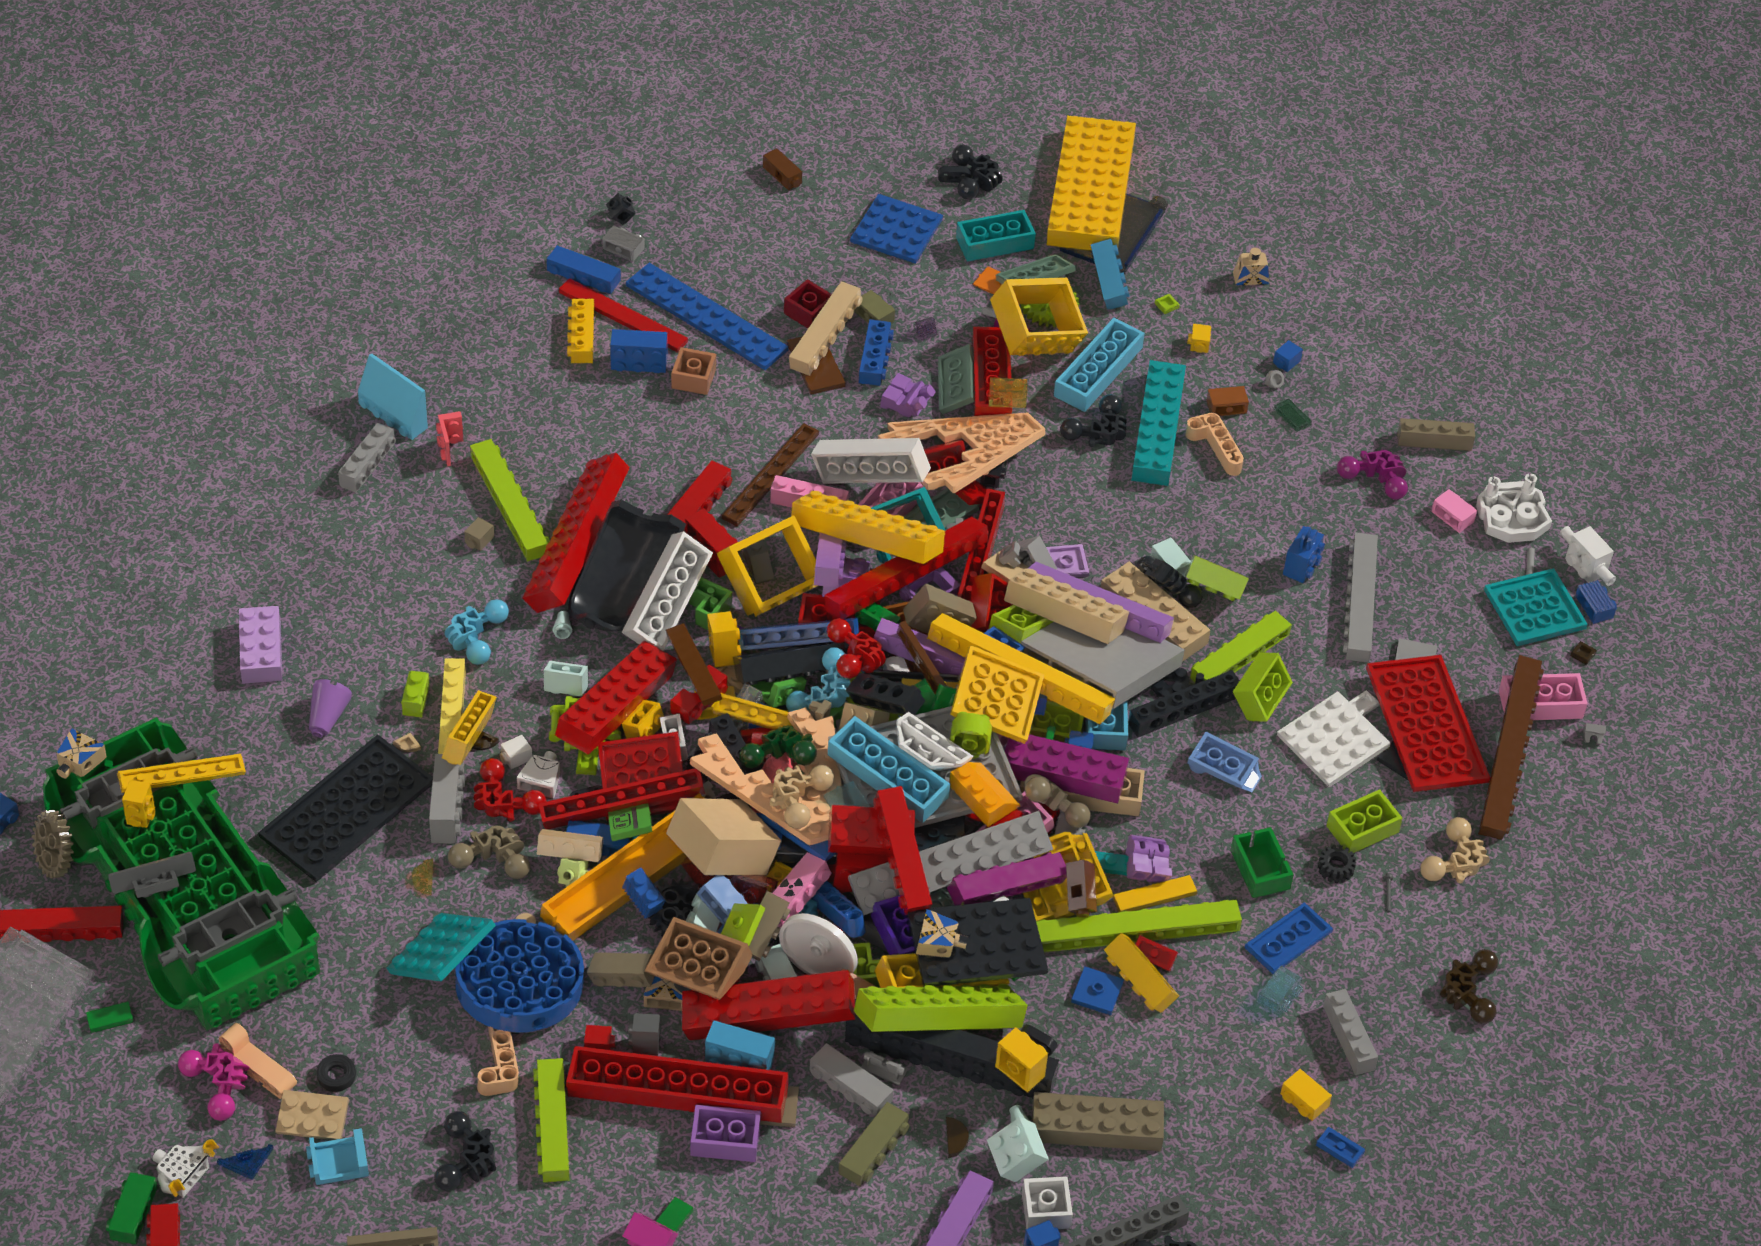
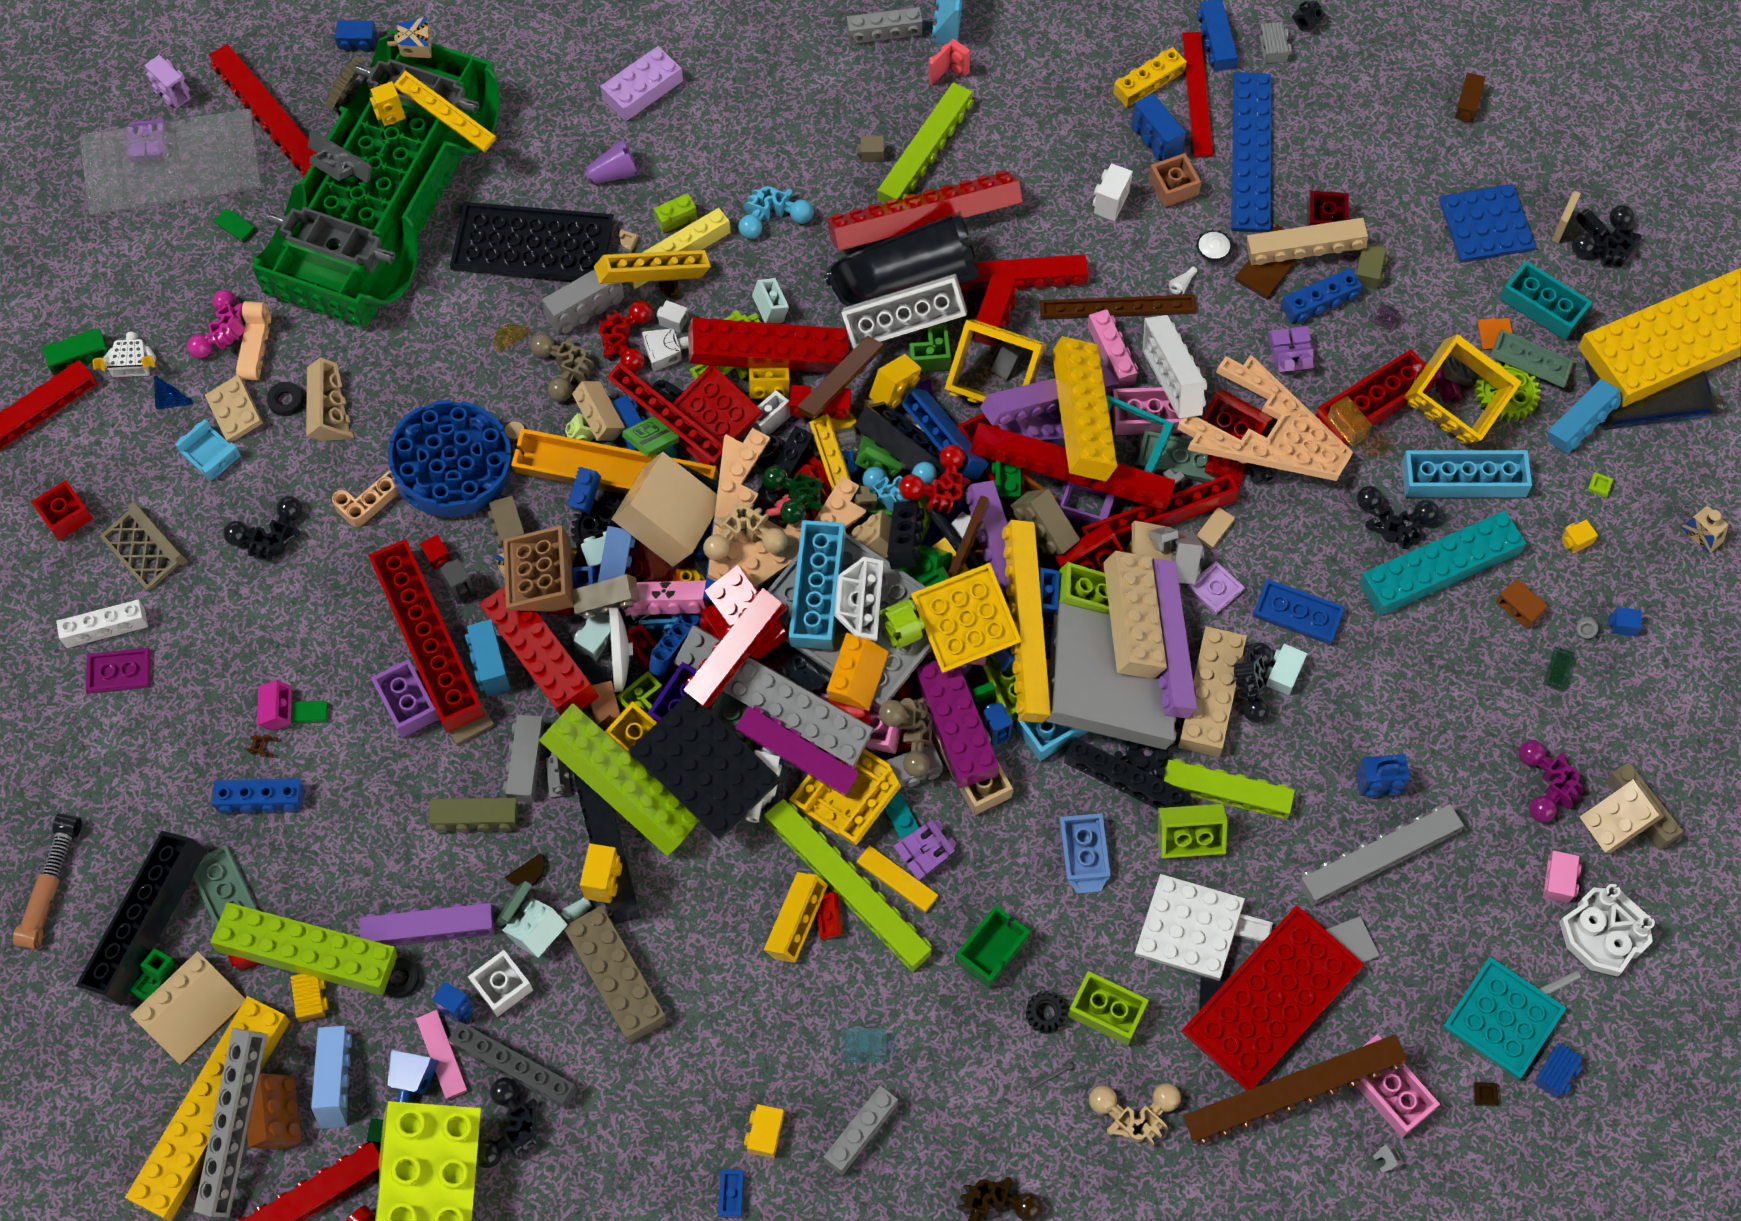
camera: 60 degrees right, 15 degrees up
(371, 1041) = (325, 403): none -> tan wedge
(440, 946) = (435, 387): teal plate -> none
(552, 1120) = (335, 571): lime brick -> none
(562, 626) = (823, 263): light aqua cone -> none
(671, 411) = (1112, 191): none -> white brick
(743, 922) = (589, 578): lime plate -> none
(773, 384) = (1214, 245): none -> white piece
(786, 424) = (1179, 284): none -> white cone
(846, 795) = (771, 574): clear light blue piece -> none
(938, 181) = (1566, 216): none -> tan tile
(939, 936) = (673, 730): torso -> none
(956, 379) = (1344, 374): sand green plate -> none
(983, 1153) = (513, 904): none -> sand green tile
(1014, 528) = (1215, 528): none -> tan tile
(1040, 1038) = (668, 877): black beam -> none
(1081, 888) = (837, 814): reddish brown brick -> none
(1097, 990) = (758, 893): blue plate -> none
(1128, 525) = (1298, 611): none -> blue plate
(1213, 429) = (1462, 629): light nougat beam -> none
(1216, 578) = (1286, 717): lime brick -> none
(1288, 938) = (933, 1018): blue tile -> none
(1438, 446) = (1621, 816): none -> tan brick
(1588, 554) = (1606, 1031): white brick -> none

